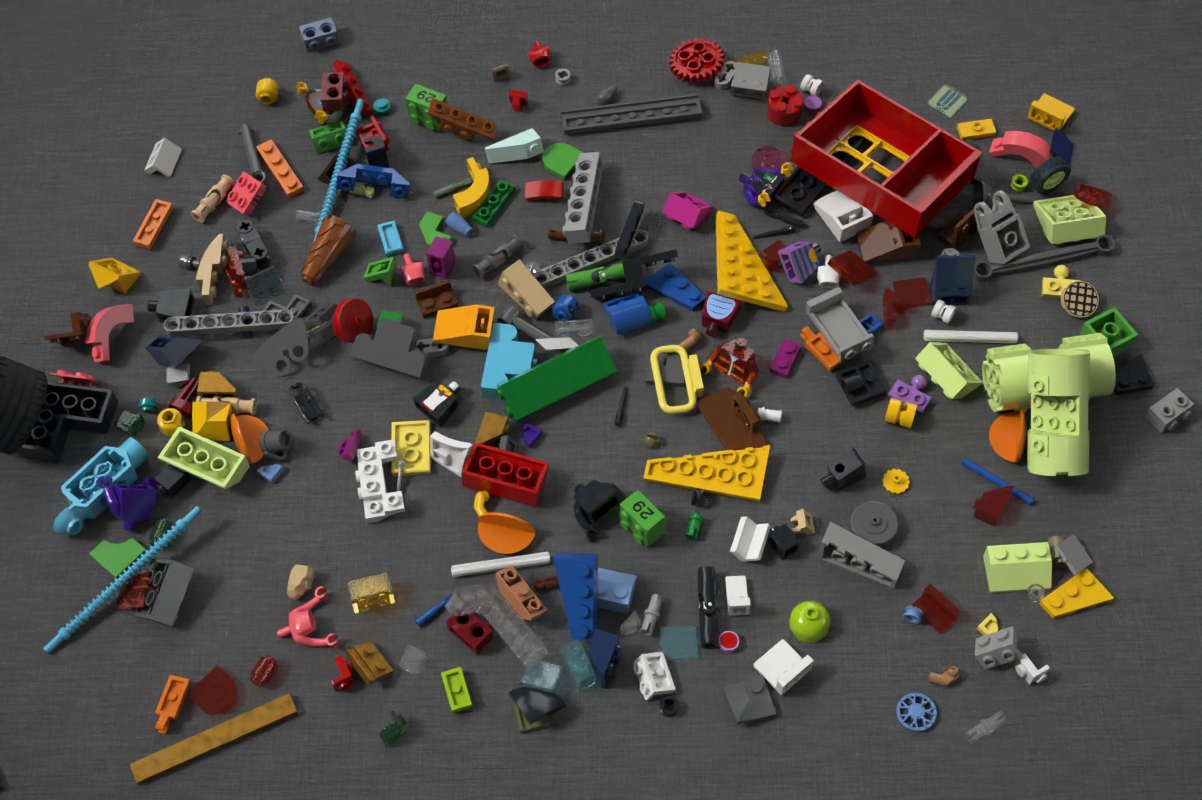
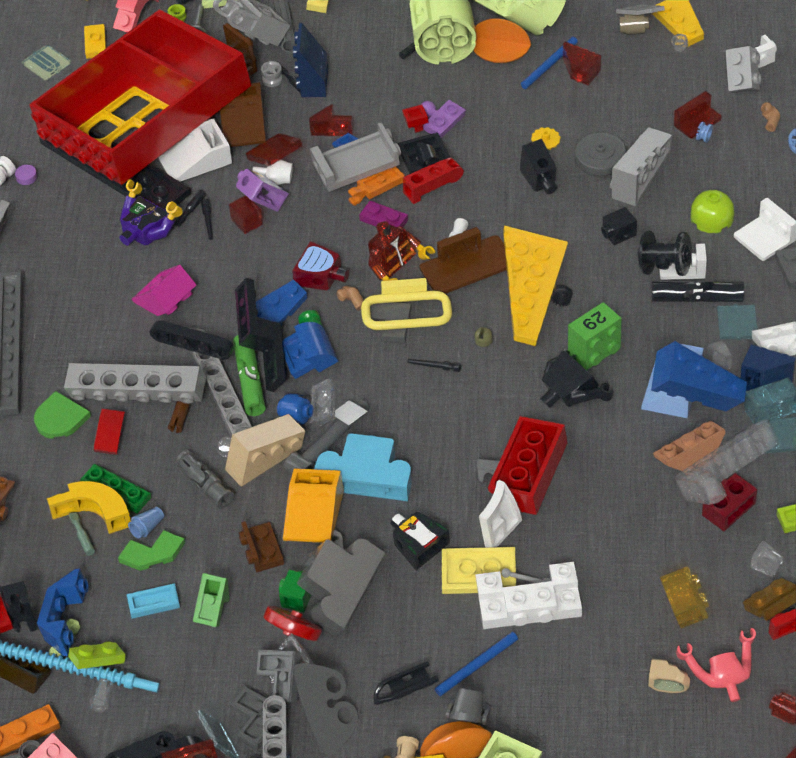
camera: 85 degrees left, 10 degrees down
(270, 472) = (506, 721): medium blue tile -> none
(324, 450) = (476, 664): none -> blue bar
(330, 242) = (164, 662): dark orange cone -> none
(336, 204) = (96, 655): none -> lime plate
(349, 448) = (477, 630): magenta plate -> none
(412, 272) = (212, 565): coral piece -> none
(431, 612) = (702, 542): blue piece -> none
(441, 257) = (204, 530): magenta brick -> none
(480, 499) = (563, 497): yellow arm -> none
(492, 428) = (465, 484): pearl gold slope -> none
(499, 564) = (642, 478): white axle -> none
(504, 532) = (604, 470): orange piece -> none
(515, 148) = (36, 455): light aqua slope -> none
(530, 434) = (467, 450): dark purple tile -> none
(548, 582) = (664, 426): copper axle -> none
(555, 378) = (400, 413): green brick -> none
(651, 615) = (704, 338): light grey pin -> none
(696, 521) = (594, 299): green pin -> none
(728, 641) = (736, 275): red tile -> none
(740, 269) = (269, 241): yellow wing -> none
(741, 565) = (664, 255): none -> black hose
(749, 540) = (617, 249): white panel -> none
(768, 158) = (102, 219): clear pink tile -> none
(785, 105) = (28, 194): red brick -> none
(804, 521) = (596, 207): tan tile -> none
(830, 389) = (431, 178): none -> red leg
(900, 413) = (467, 122): yellow wheel -> none
(902, 370) = (415, 117): none -> red tile
(913, 291) = (304, 107): clear red piece -> none
(943, 311) = (338, 84): white wheel -> none
(948, 370) = (417, 84): yellowish green slope -> none
(970, 336) = (372, 67): white axle -> none
(989, 625) = (714, 83): light yellow tile -> none
(1018, 566) = (651, 52): yellowish green slope -> none

